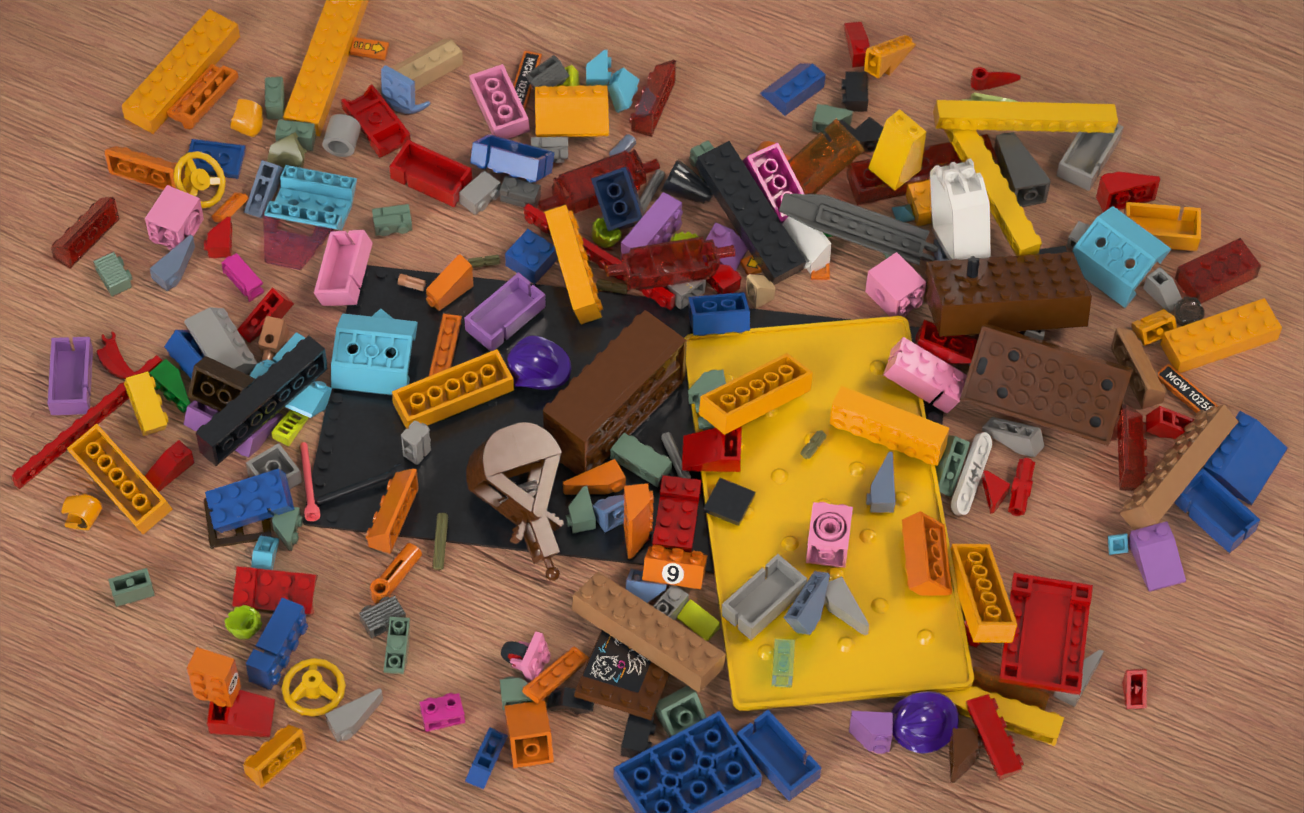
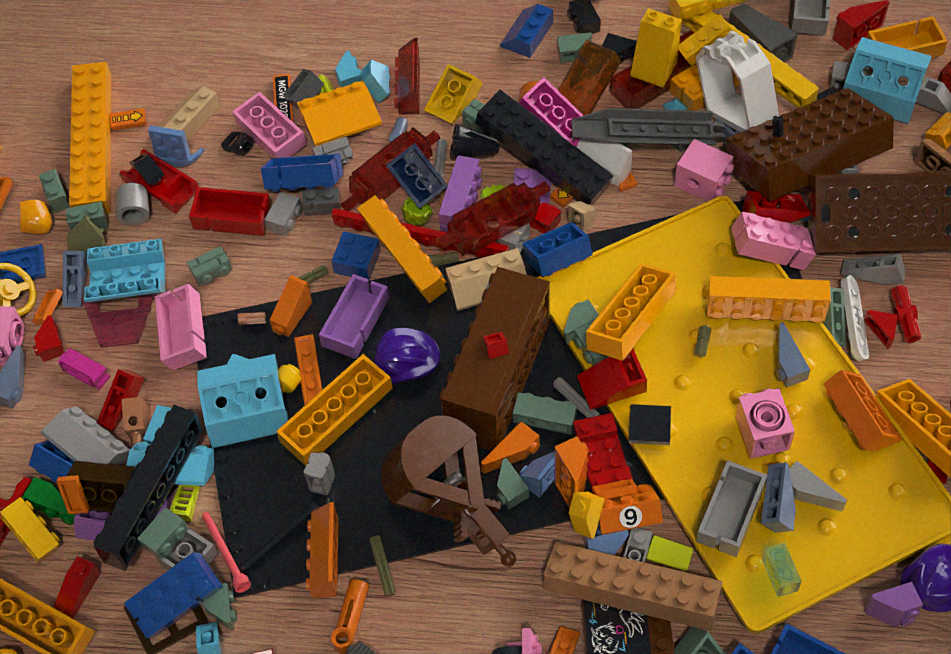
camera: 15 degrees left, 0 degrees up
(194, 385) = (73, 494): none -> orange tile
(259, 445) = (163, 533): none -> sand green brick
(367, 106) = (147, 169): none -> black slope
(422, 348) = (289, 378): none -> yellow head
(466, 111) = (240, 146): none -> black piece
(611, 379) = (495, 345): none -> red slope
(622, 311) = (471, 278): none -> tan slope
(632, 555) = (585, 513): none -> yellow slope
(670, 546) = (615, 489): none -> orange tile
(690, 128) = (453, 94): none -> yellow slope
(956, 152) = (704, 36): none -> yellow brick

